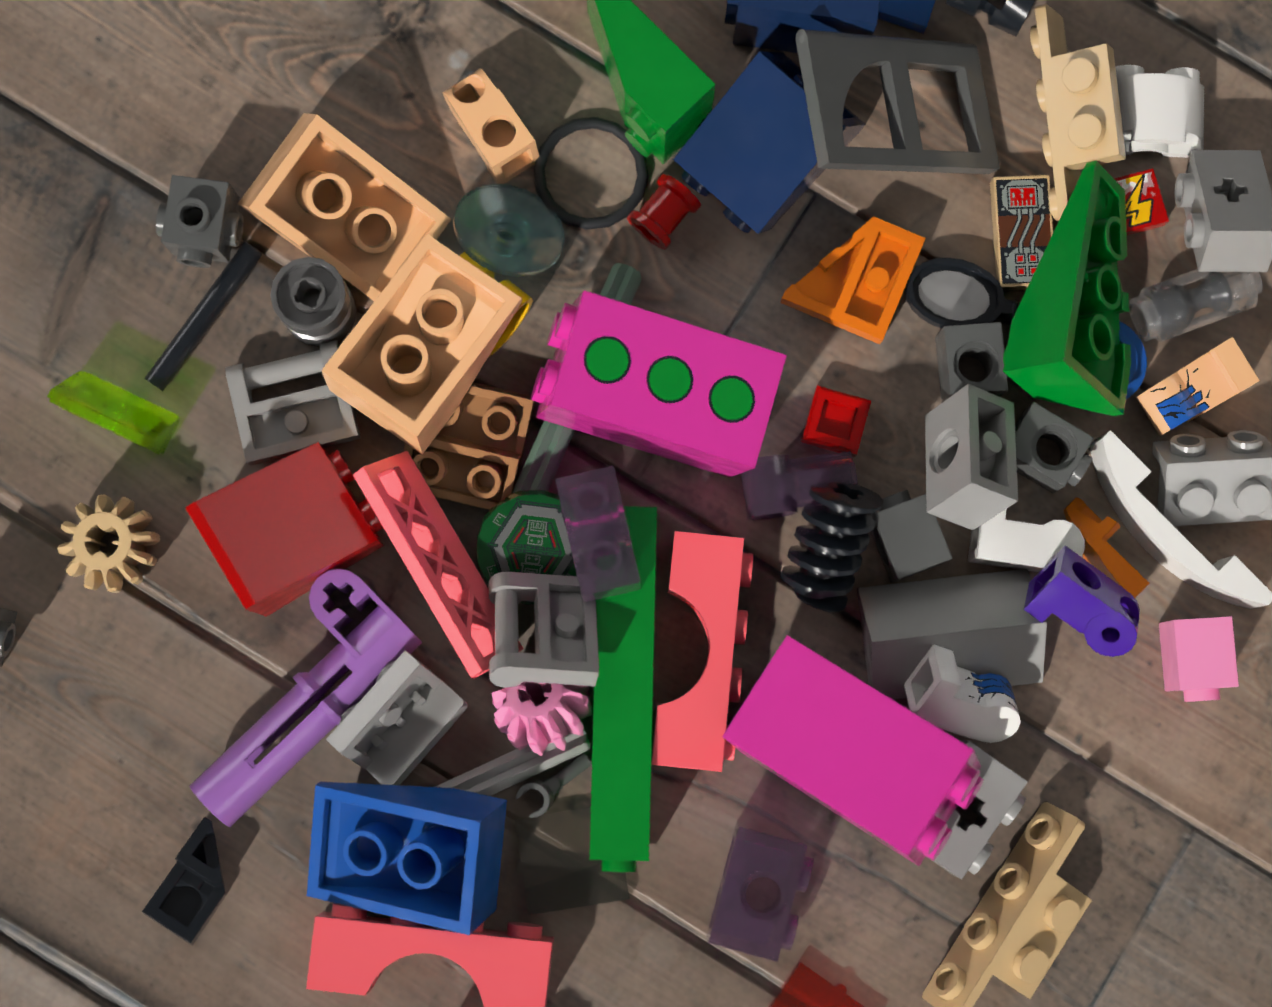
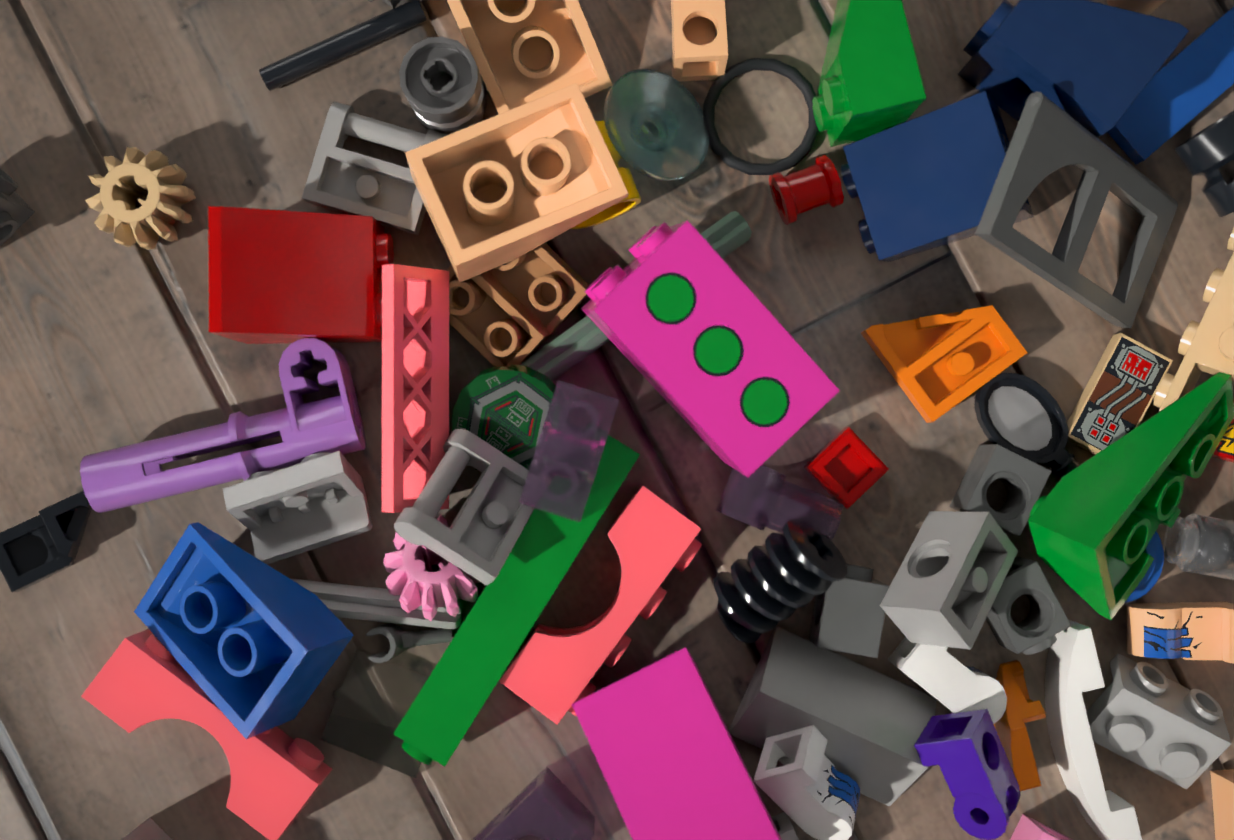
camera: 30 degrees right, 5 degrees up
(116, 410) = (215, 83): clear neon green slope -> none

